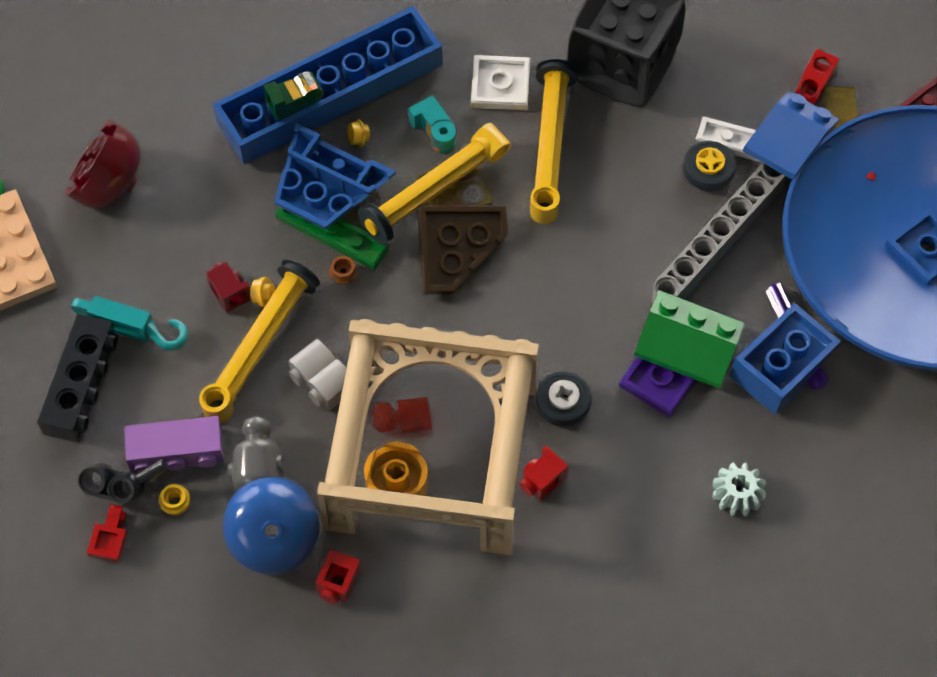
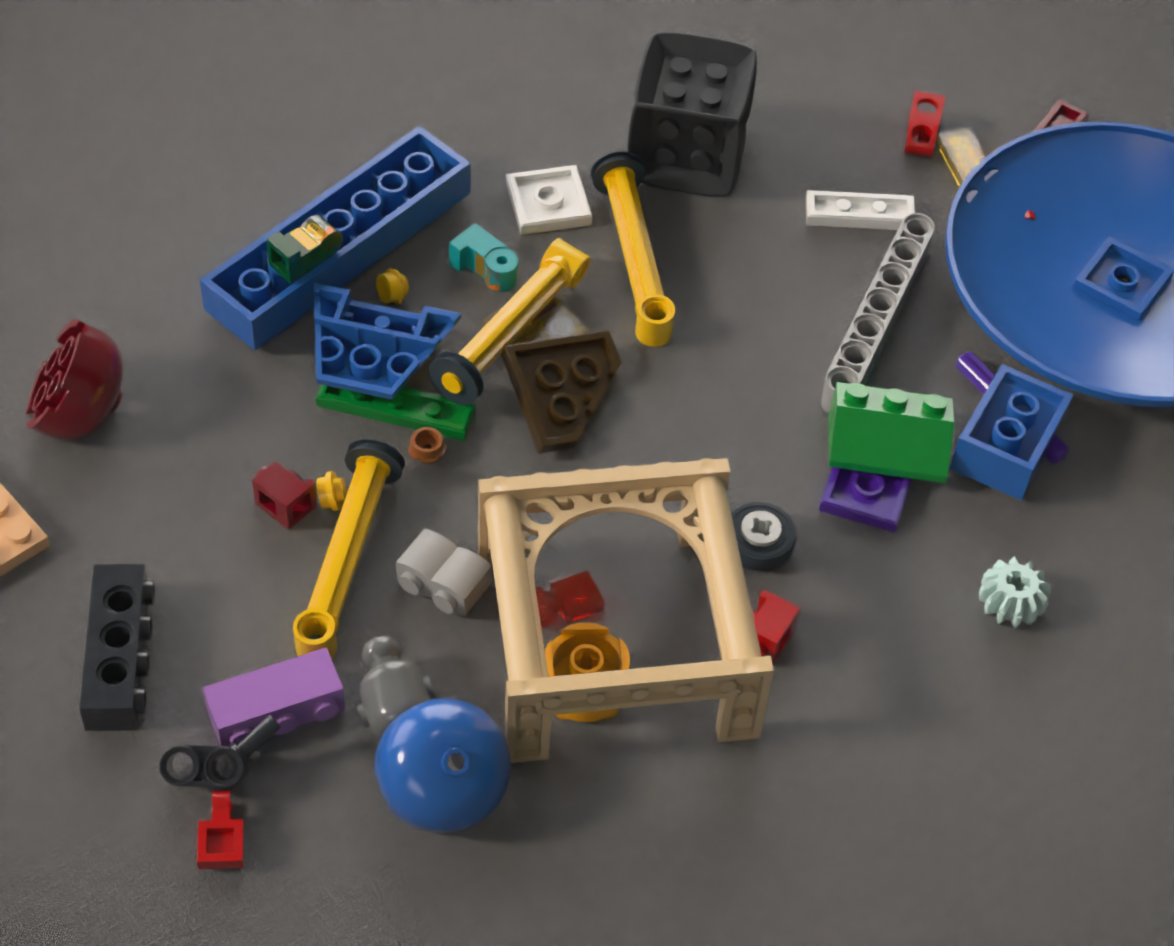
camera: 20 degrees left, 10 degrees down
(130, 321) = (167, 561): teal piece -> none
(170, 492) = (295, 758): yellow plate -> none
(337, 567) = (549, 813): red brick -> none
(719, 161) = (835, 241): black wheel -> none
(790, 134) = (924, 183): blue slope -> none

